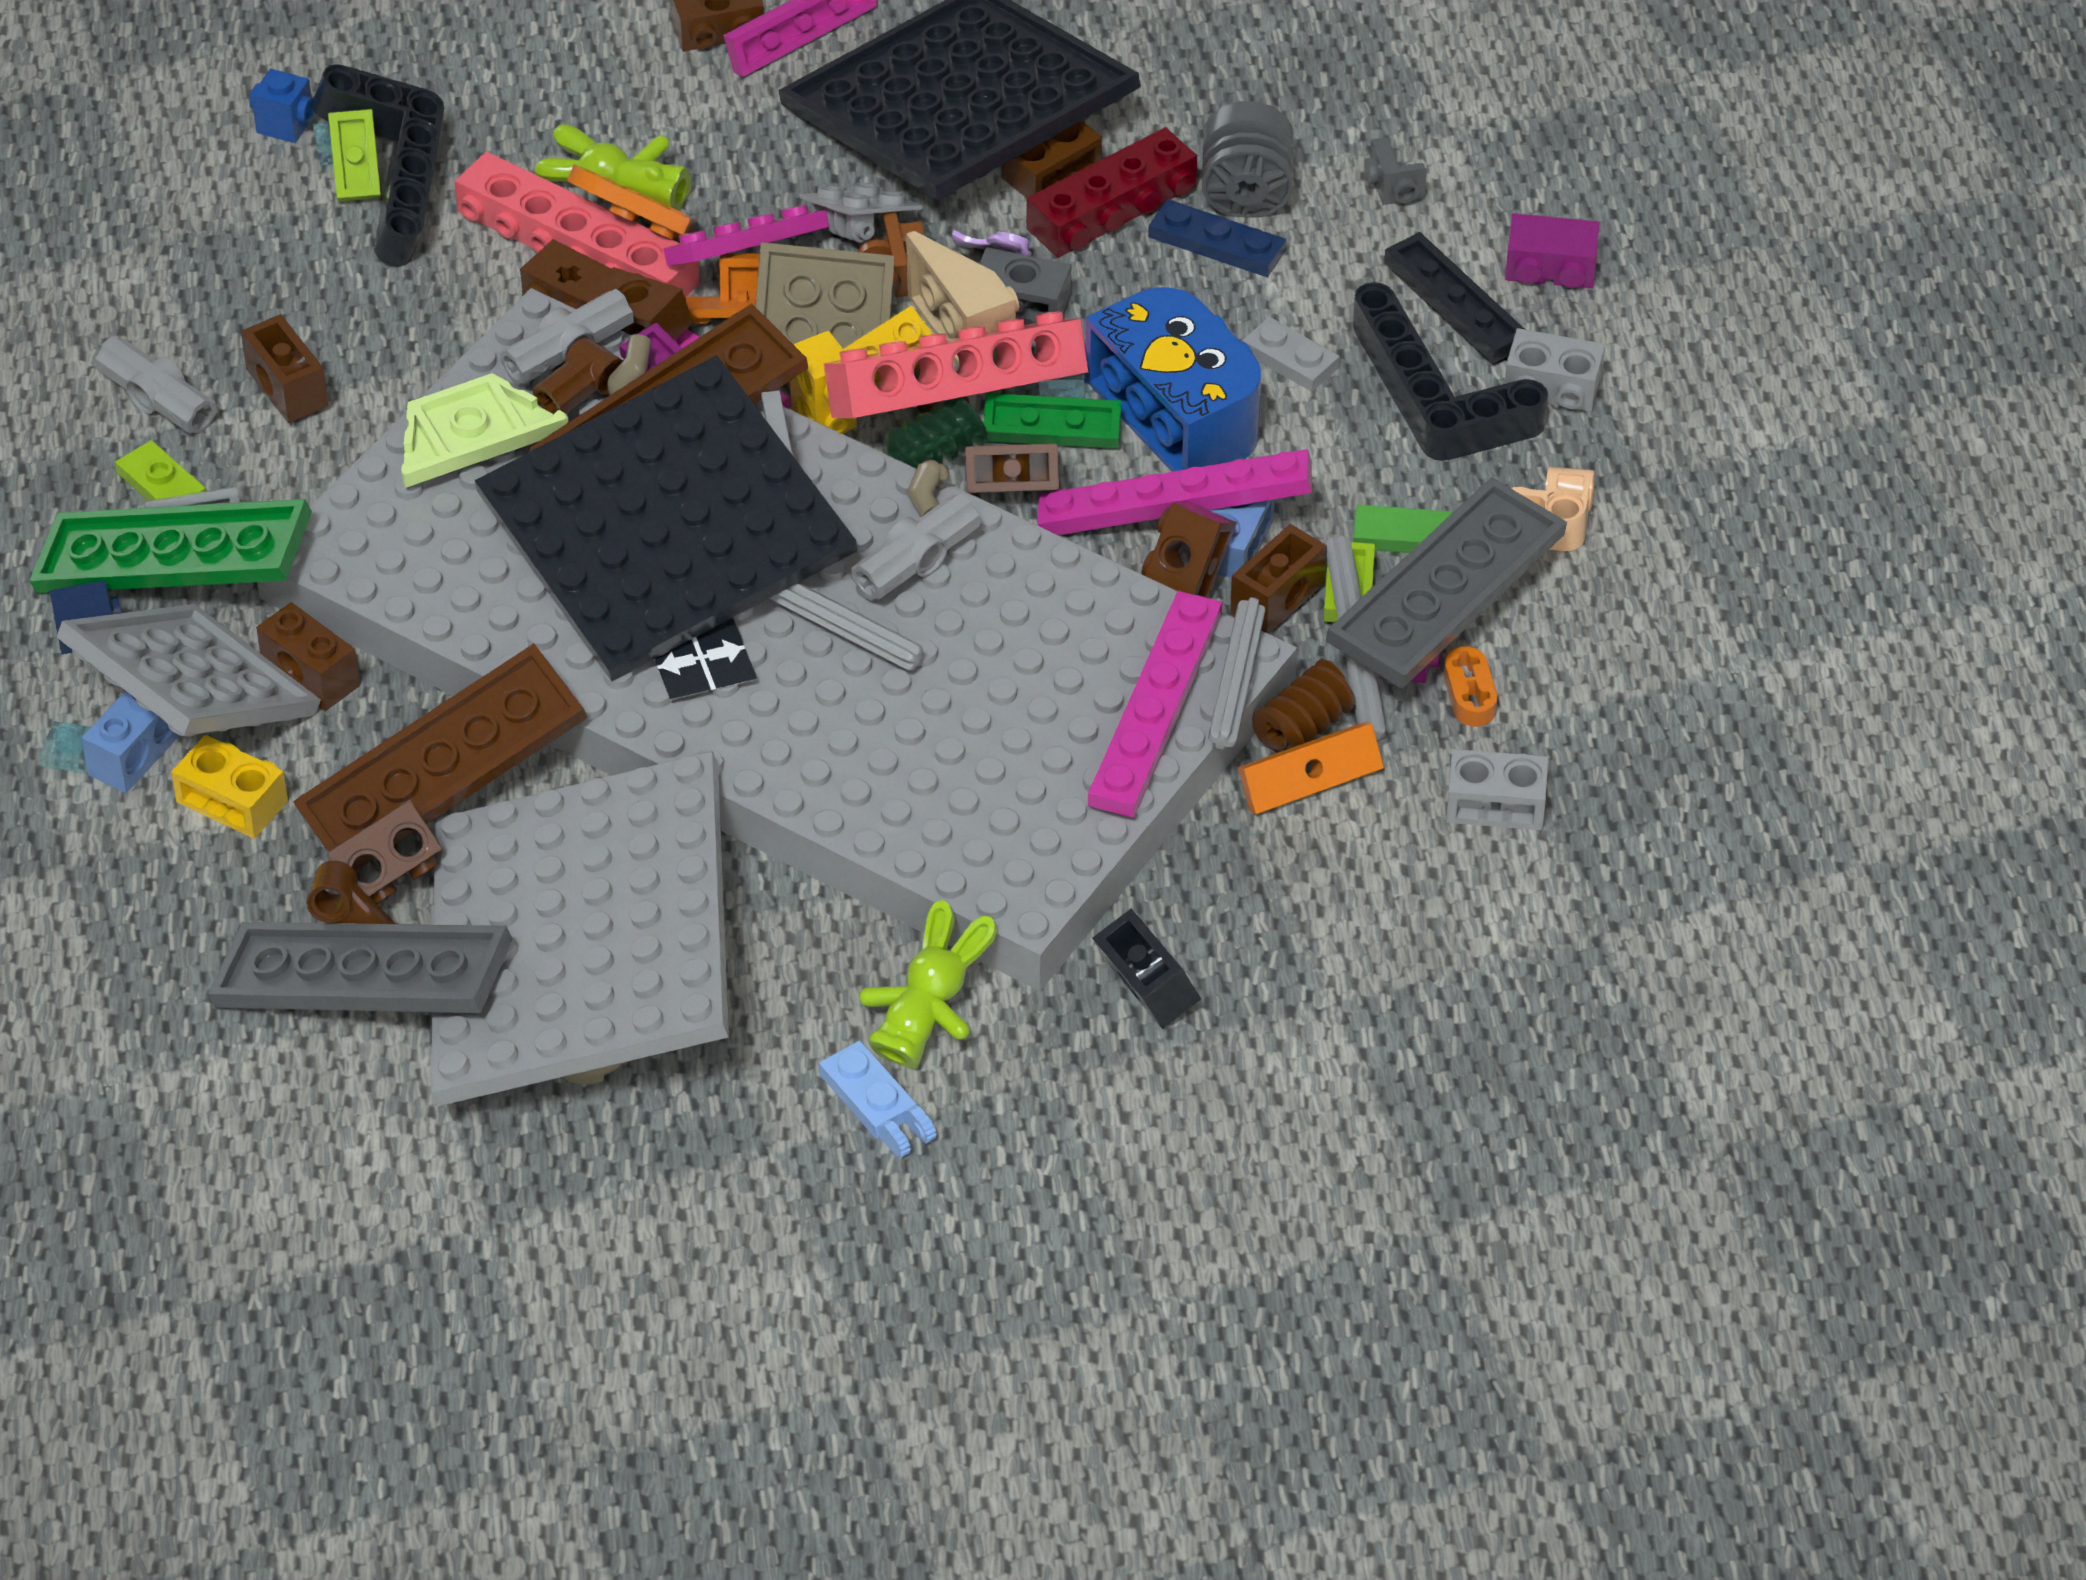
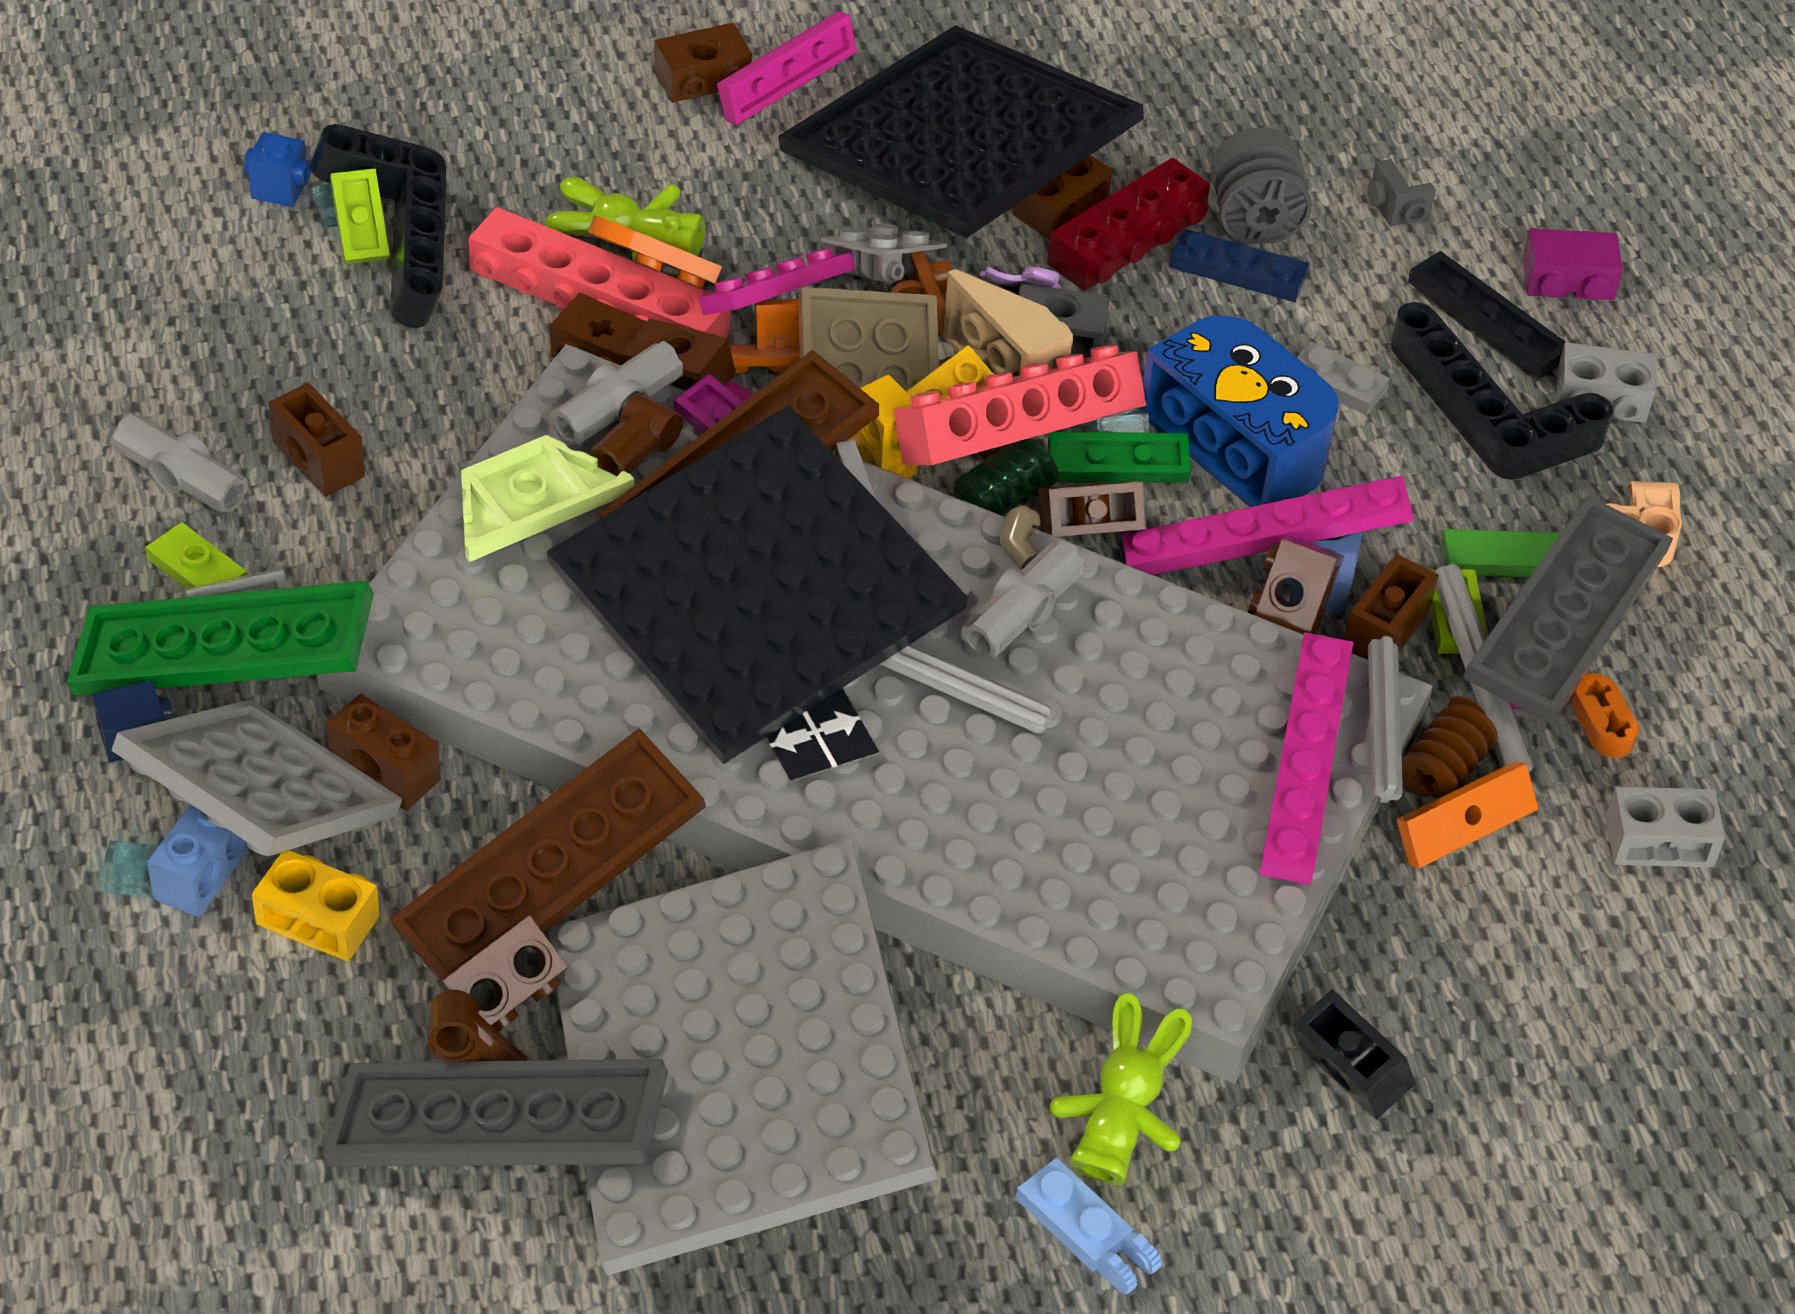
camera: 10 degrees left, 0 degrees up
(633, 365) = (693, 422): dark tan arm -> none

